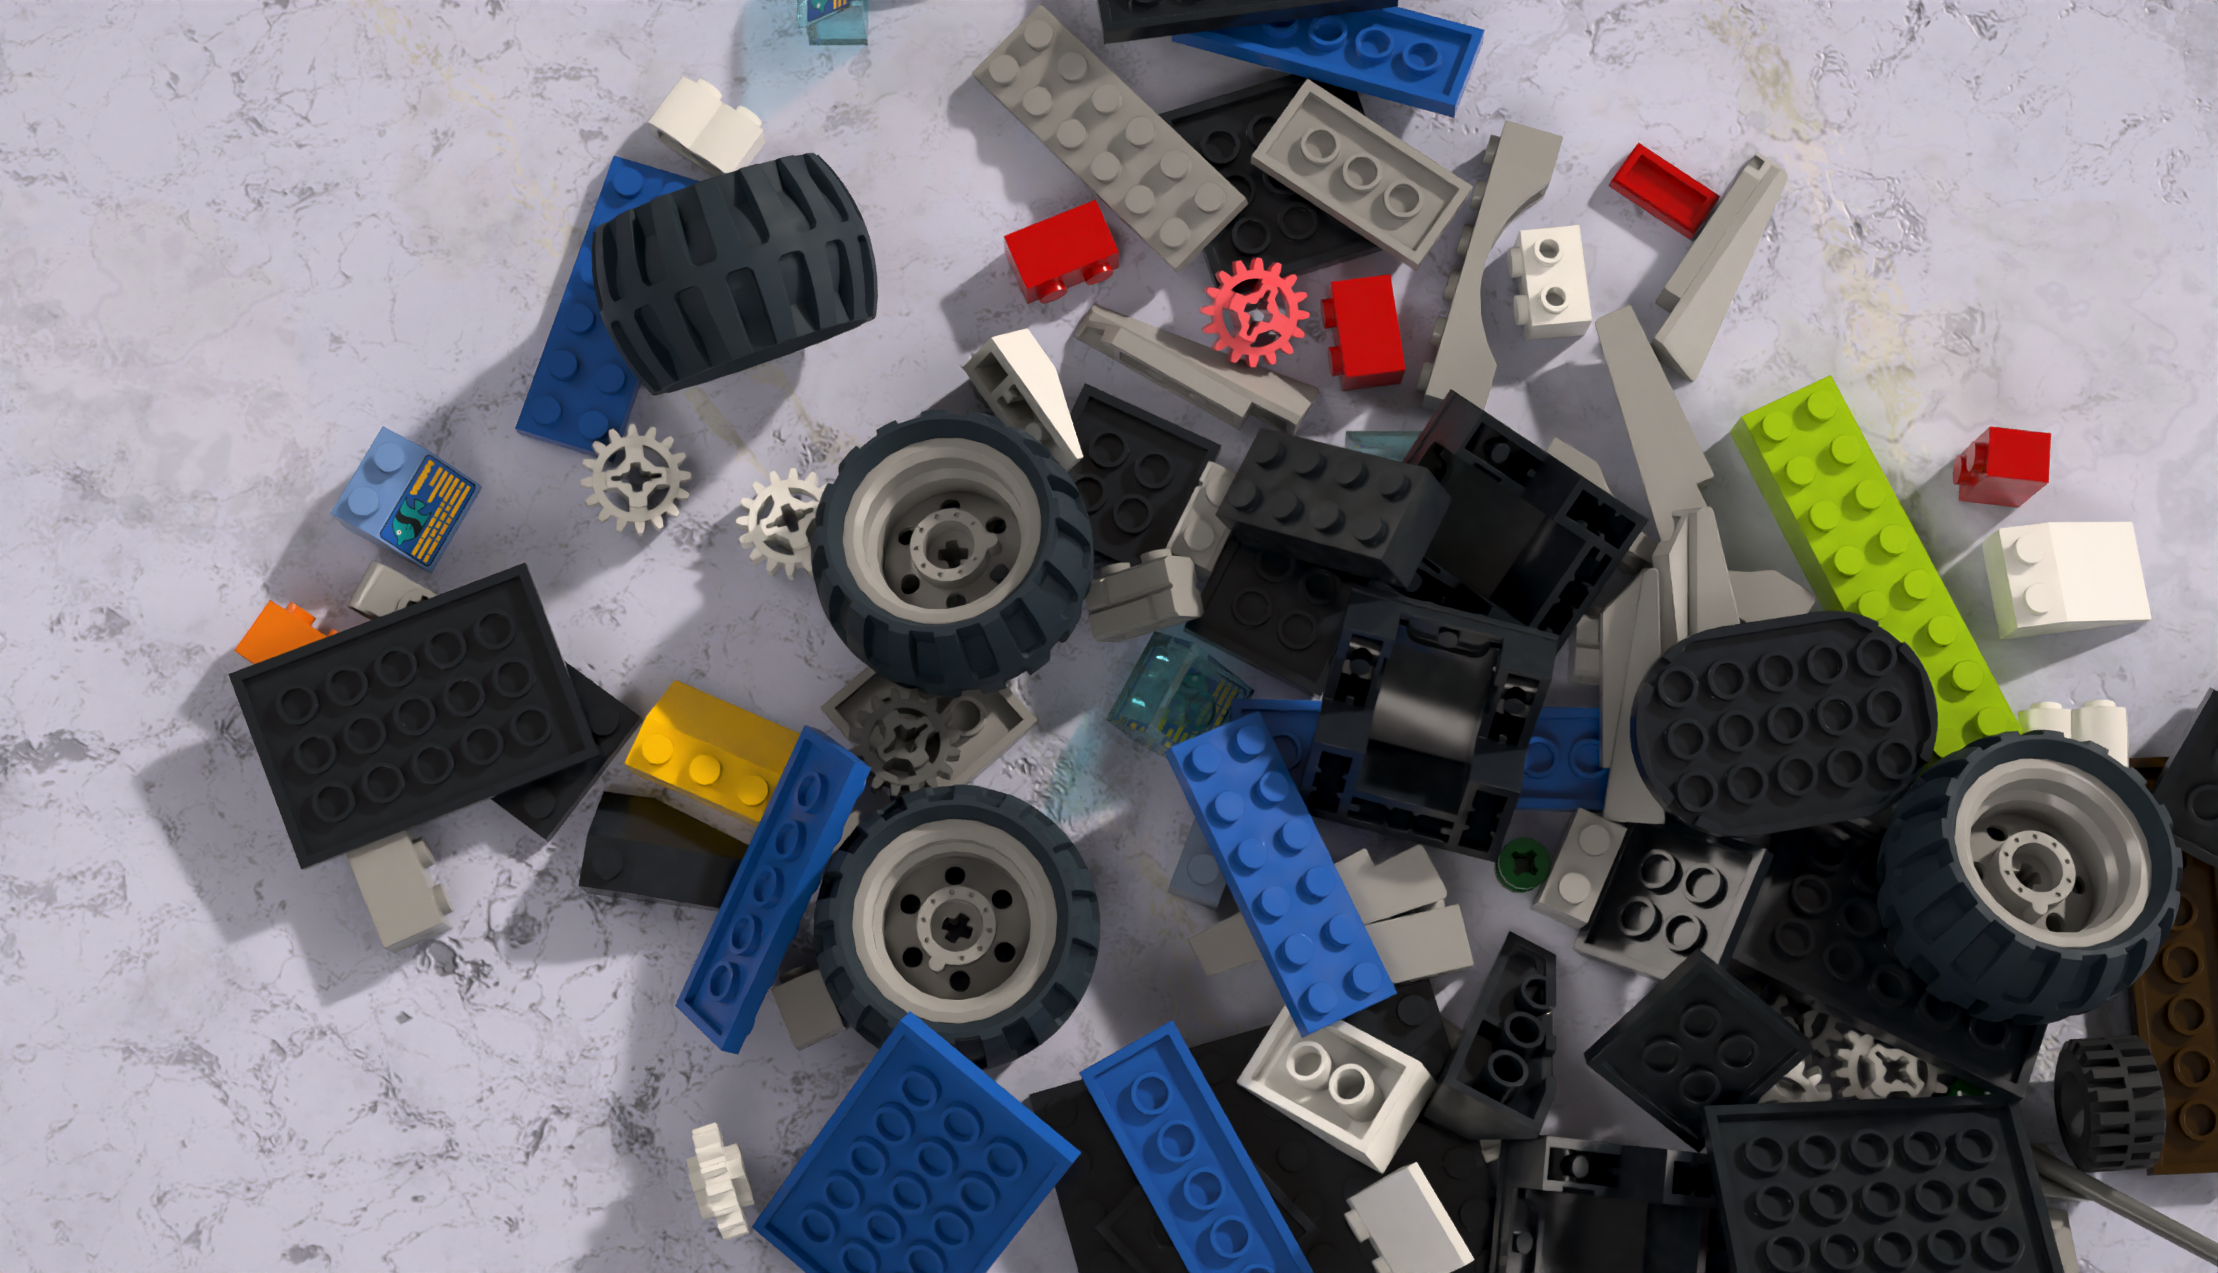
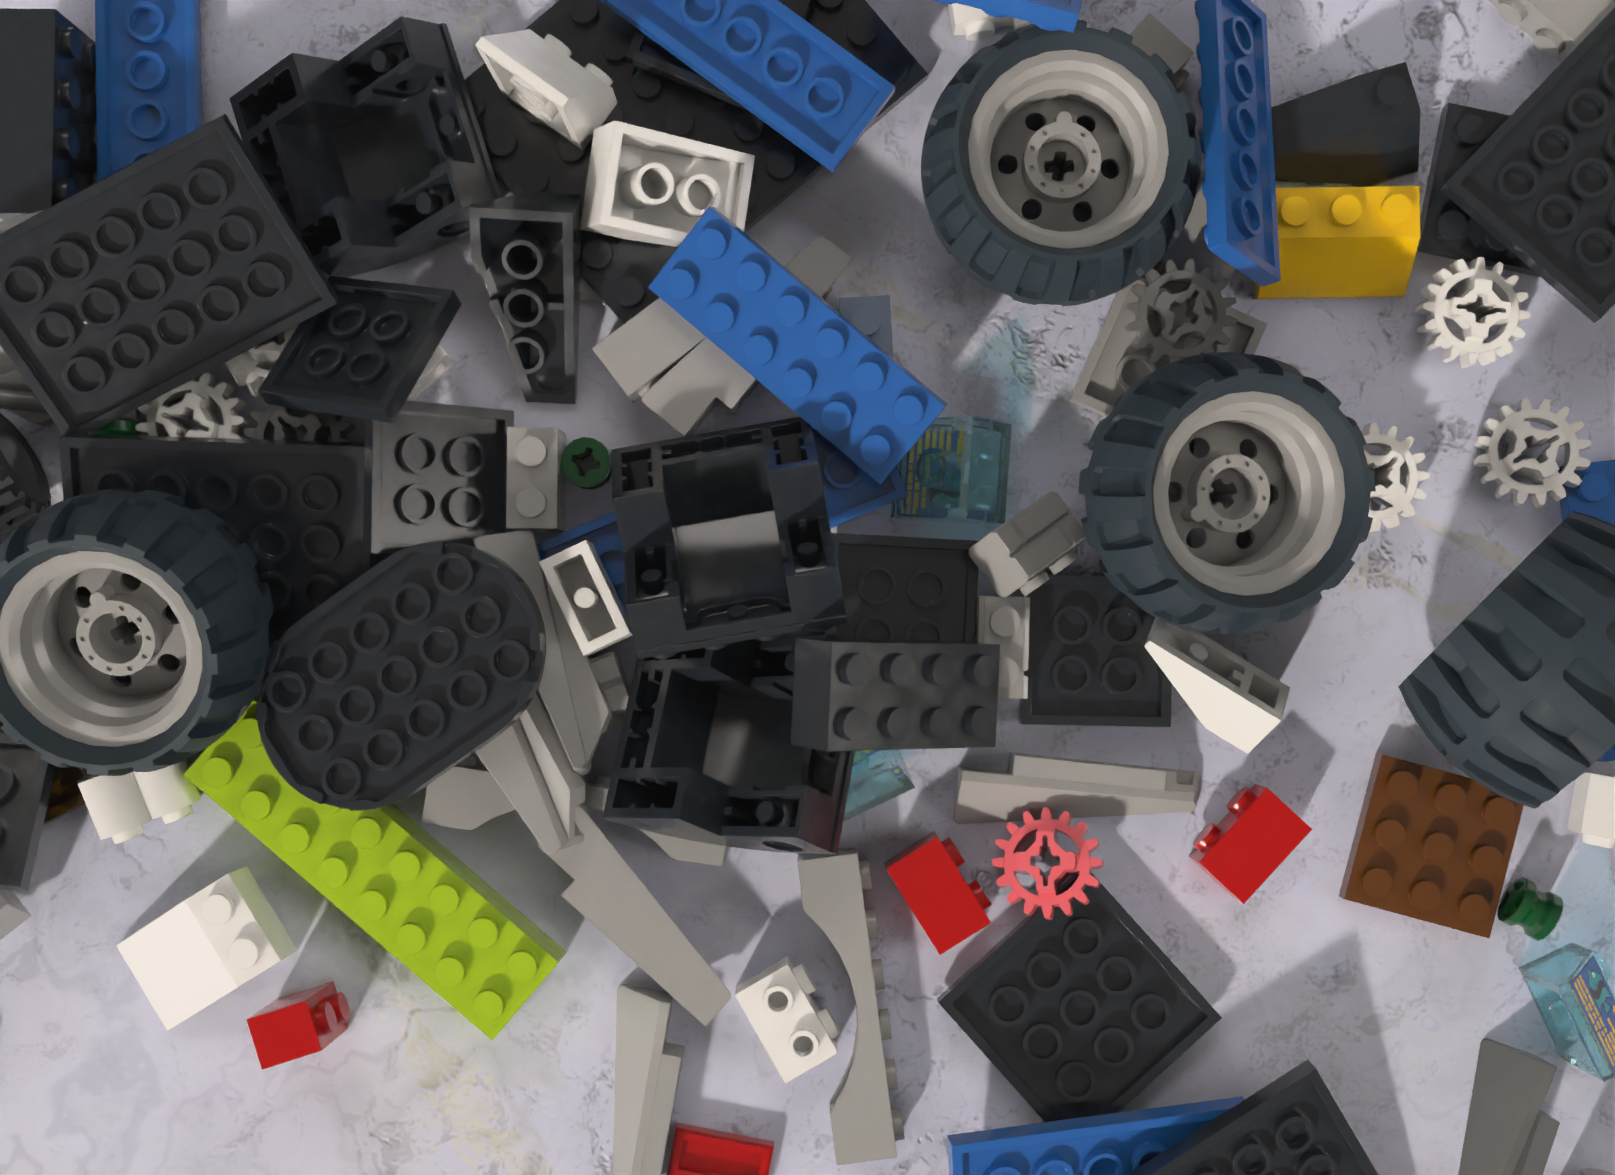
camera: 160 degrees right, 10 degrees up
(614, 650) = (1488, 297): none -> white gear
(837, 87) = (1530, 908): none -> dark green wheel
(906, 176) = (1431, 846): none -> reddish brown plate
(1110, 138) = (1257, 973): light grey plate -> none
(1361, 174) = (1009, 1041): light grey plate -> none
(1578, 727) = (587, 597): none -> white brick

